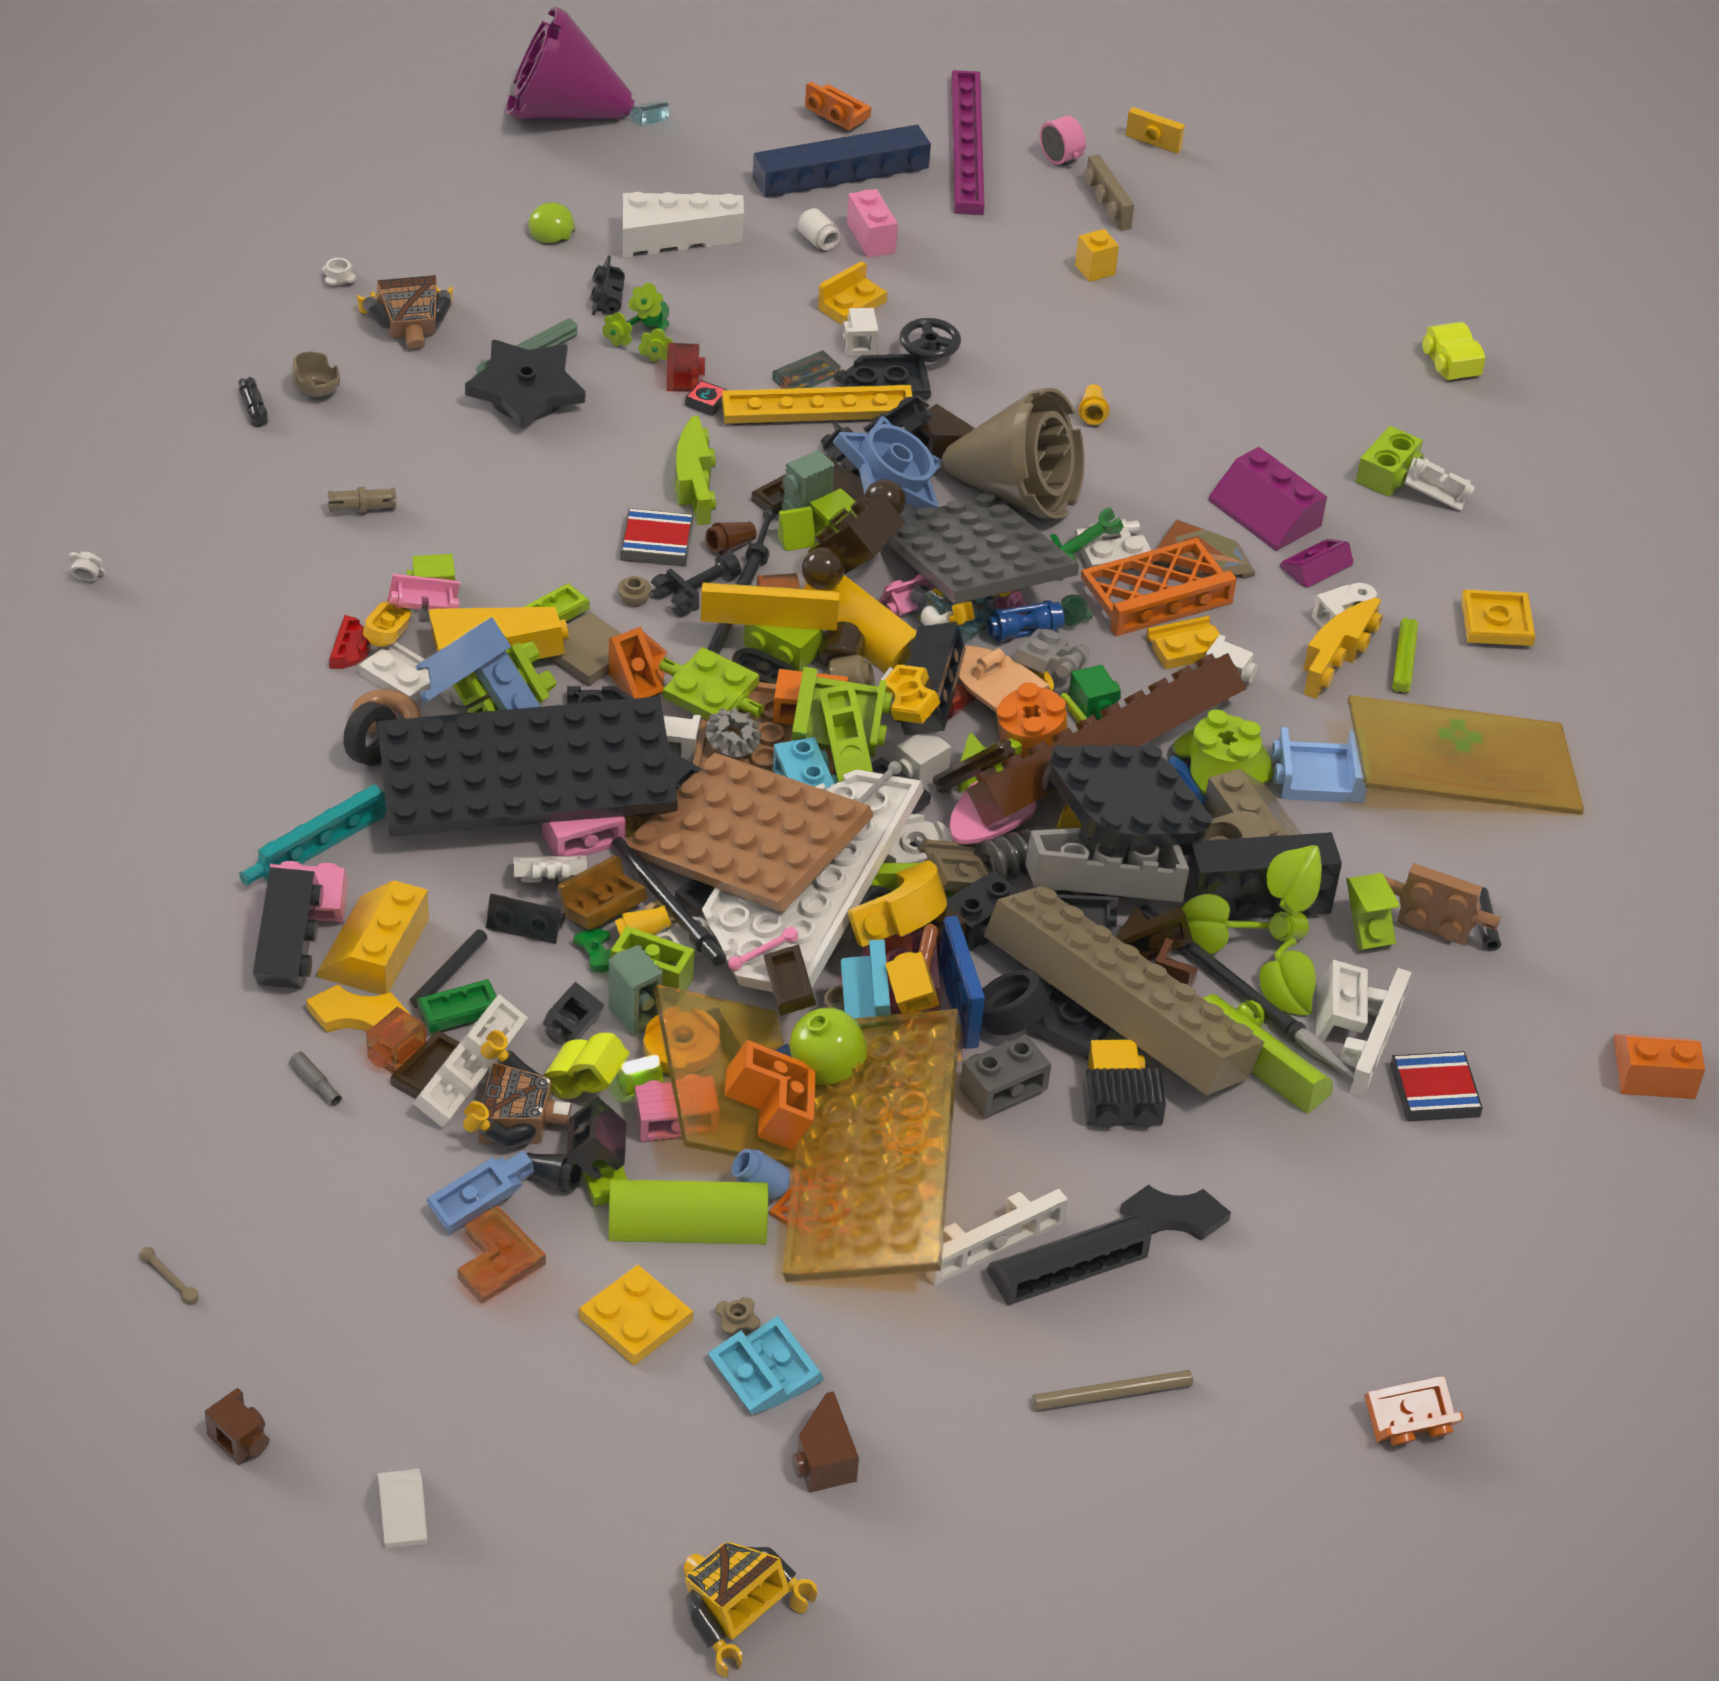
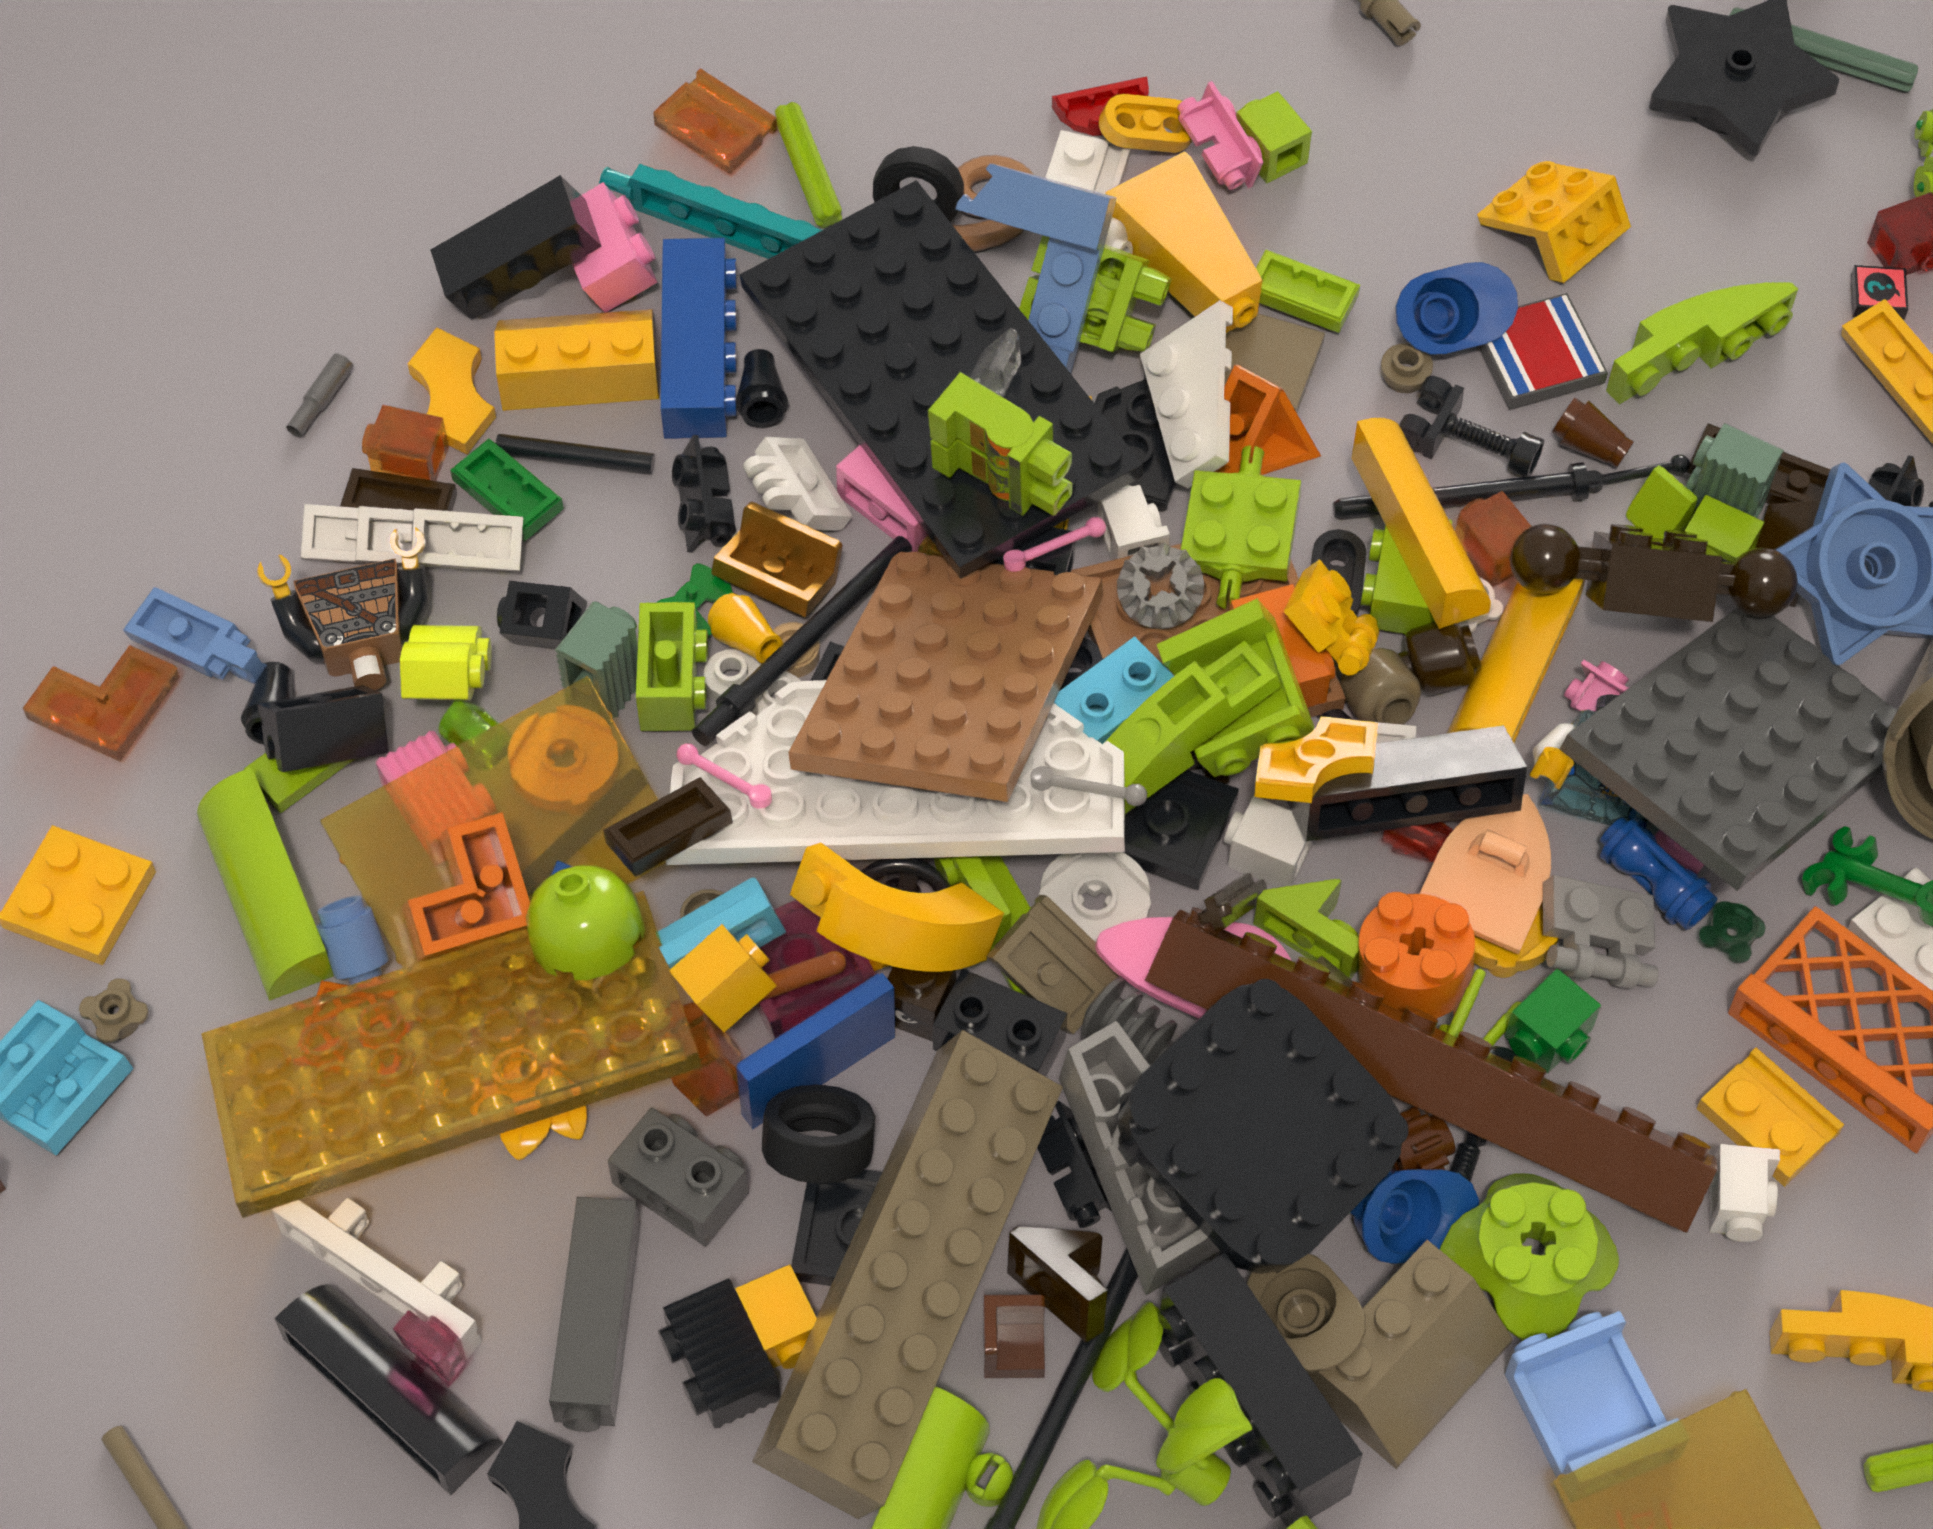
camera: 70 degrees right, 15 degrees up
(234, 814) = (715, 121): none -> clear orange plate
(298, 786) = (808, 164): none -> lime axle
(372, 863) = (695, 338): none -> blue brick
(465, 863) = (760, 391): none -> black cone
(557, 724) = (999, 363): none -> clear slope
(567, 487) = (1566, 210): none -> yellow bracket
(607, 669) = (1188, 392): none -> white wing
(617, 549) = (1456, 308): none -> blue piece
(630, 733) = (999, 446): none -> lime hips
(680, 781) = (1016, 559): none -> bright pink hinge
(809, 658) = (1324, 616): none -> yellow plate
(1067, 1211) = (432, 1345): none -> clear pink plate
(1071, 1144) = (595, 1313): none -> dark grey brick

